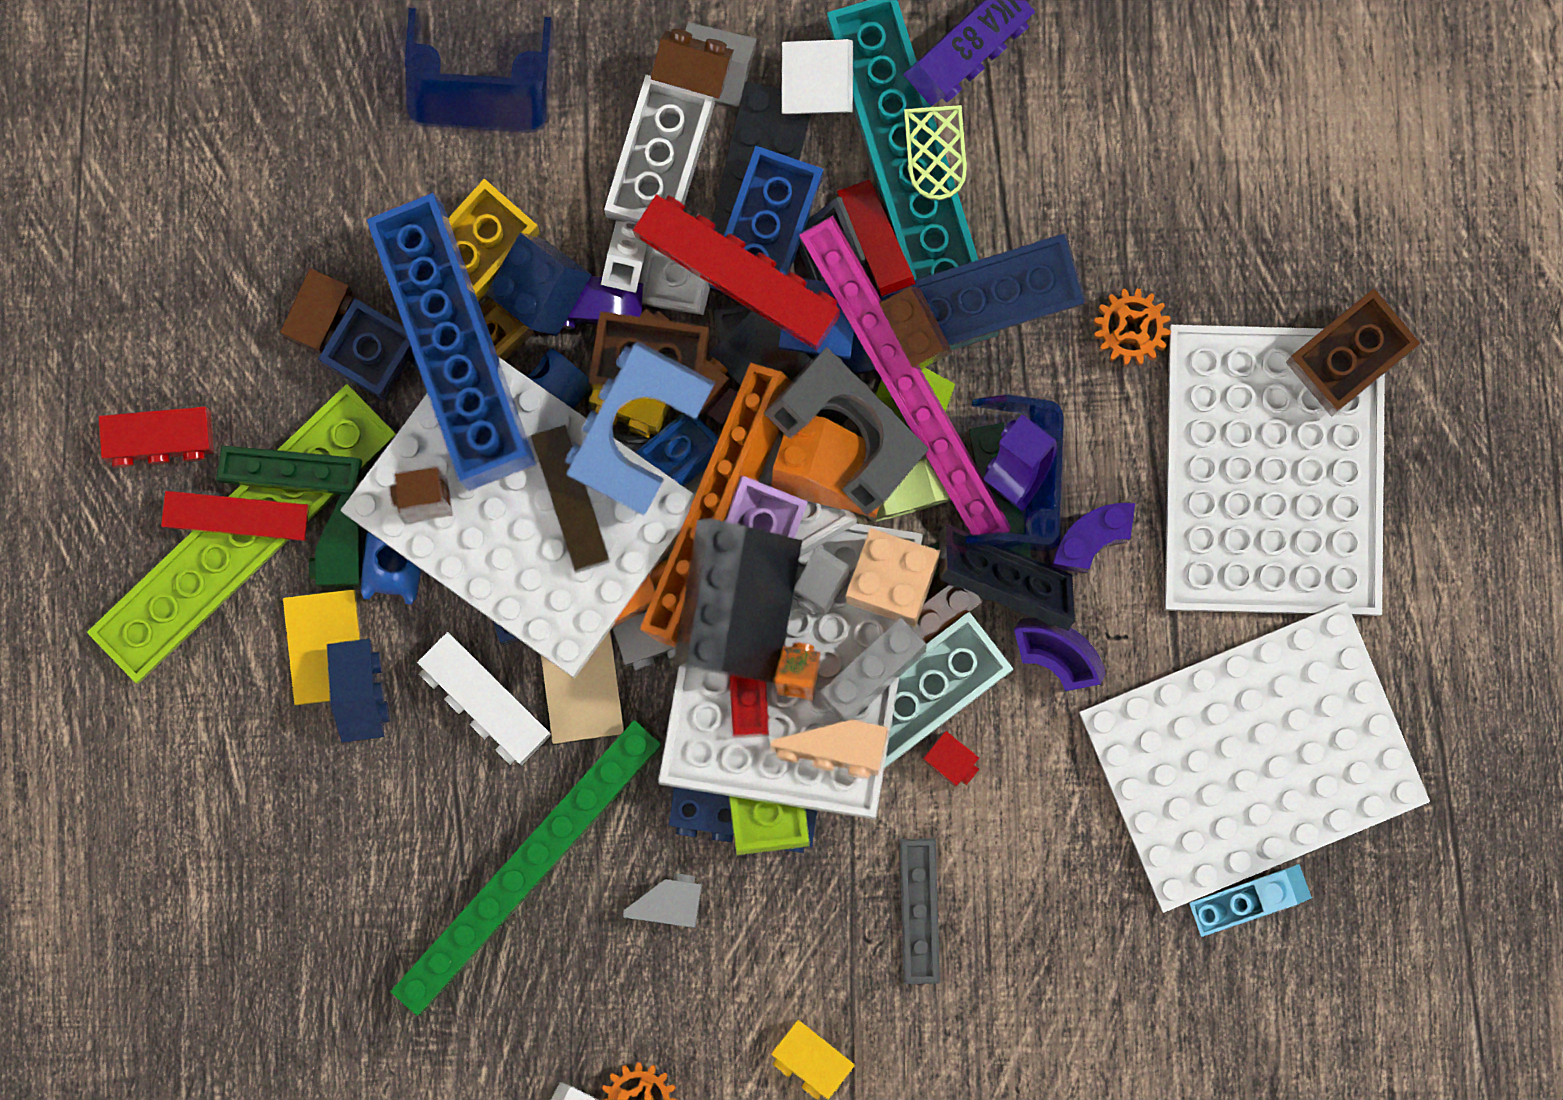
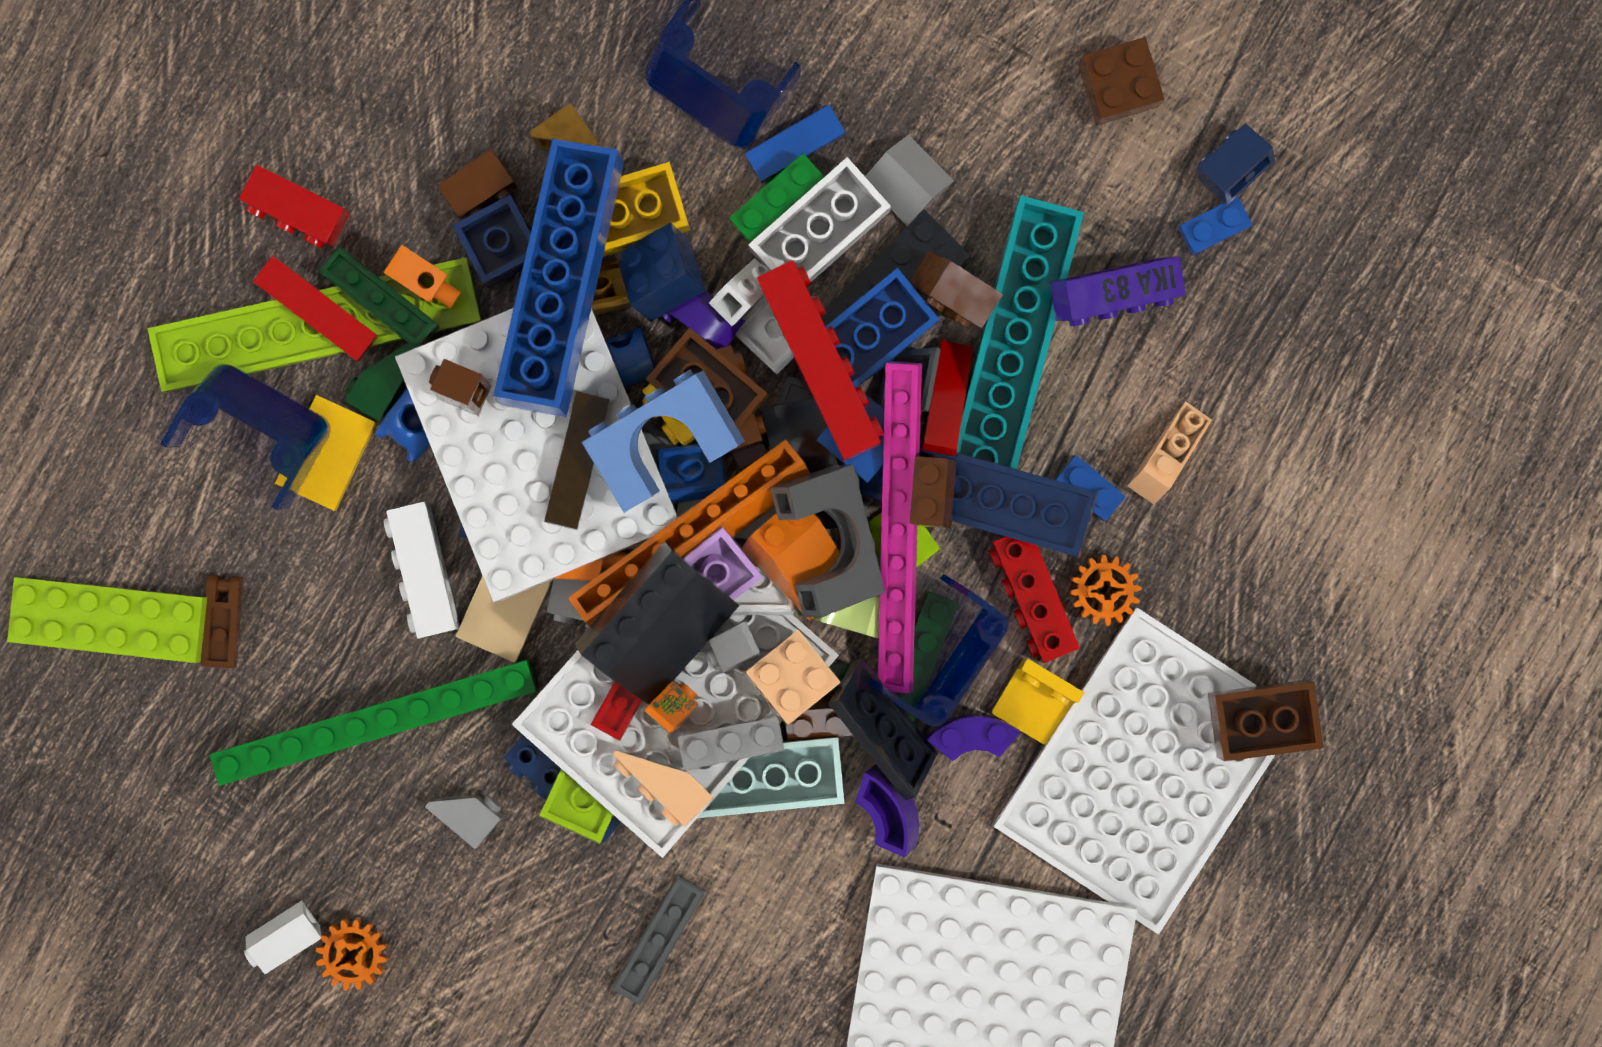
camera: 30 degrees right, 5 degrees up
(213, 929) = (107, 619): none -> lime plate
(282, 634) = (294, 426): none -> clear blue windscreen
(302, 428) = (408, 268): none -> orange torso
(324, 866) = (222, 622): none -> reddish brown plate
(354, 690) = (322, 503): dark blue brick -> none
(366, 203) = (564, 126): none -> pearl gold slope
(588, 94) = (803, 137): none -> blue tile
(602, 154) = (775, 198): none -> green brick
(692, 63) = (888, 170): reddish brown brick -> none
(812, 1060) = (504, 1004): yellow brick -> none
(817, 77) = (981, 241): white tile -> none
(821, 135) = (954, 291): none -> reddish brown brick
(908, 113) = (1054, 325): yellowish green window -> none
(952, 760) = (755, 840): red brick -> none
(1021, 462) = (950, 647): dark purple brick -> none
(1070, 372) = (1035, 597): none -> red brick
(1081, 239) = (1082, 475): none -> blue plate
(1112, 166) = (1169, 453): none -> light nougat slope
(1132, 467) = (1036, 700): none -> yellow bracket

